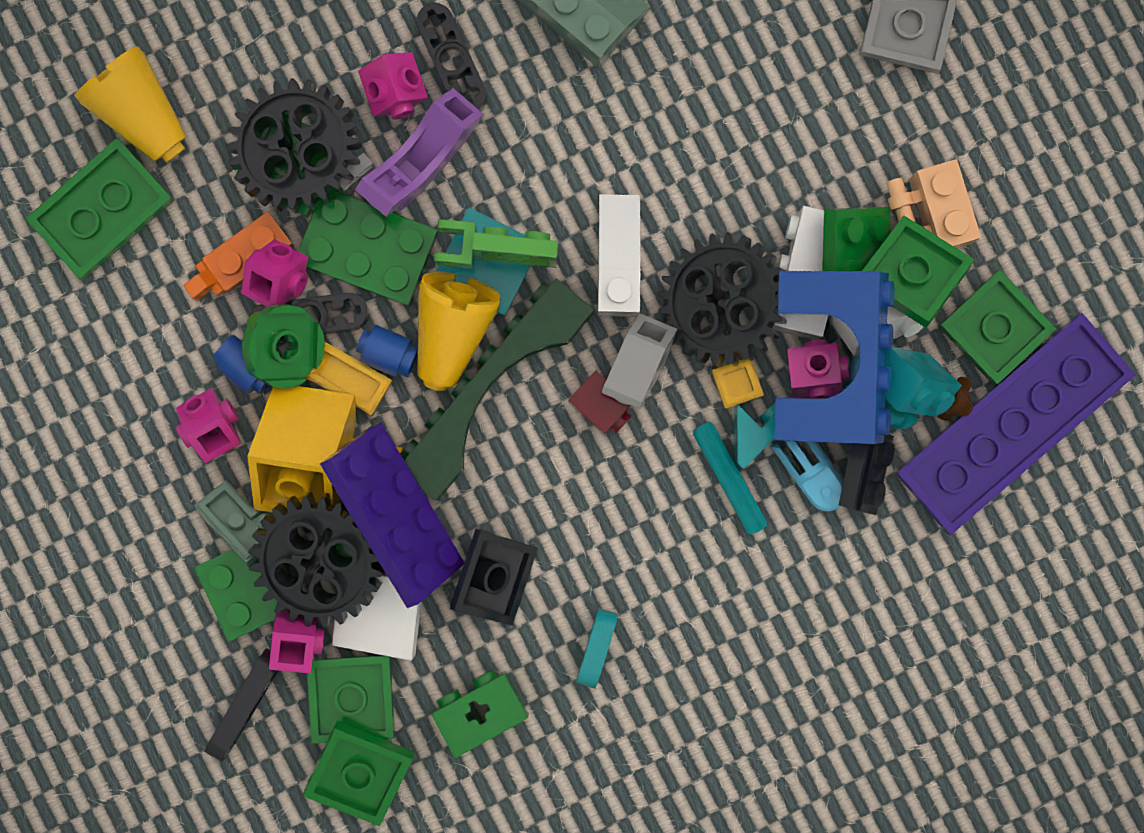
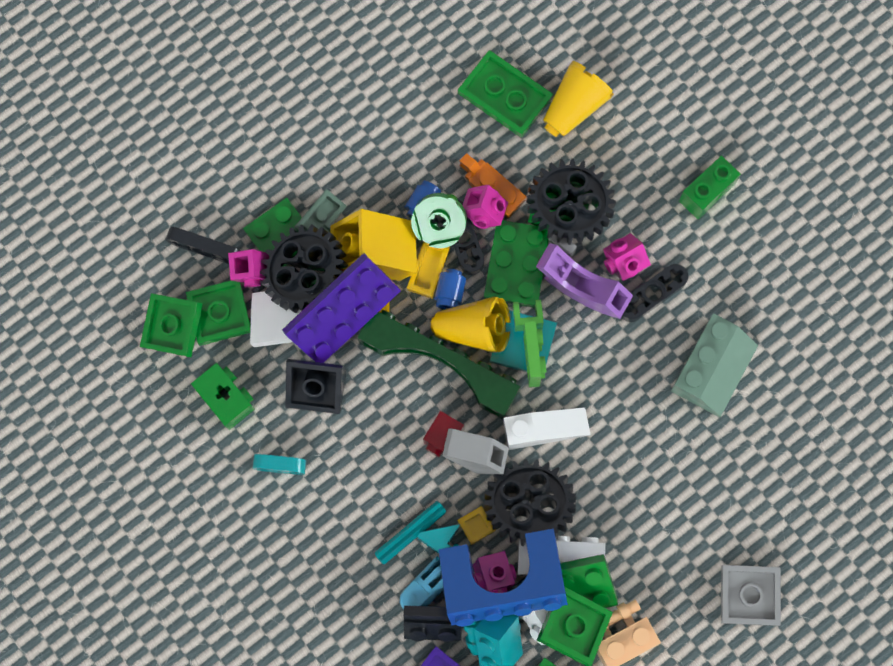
camera: 90 degrees right, 10 degrees down
(208, 425) = (379, 186): dark pink brick -> none

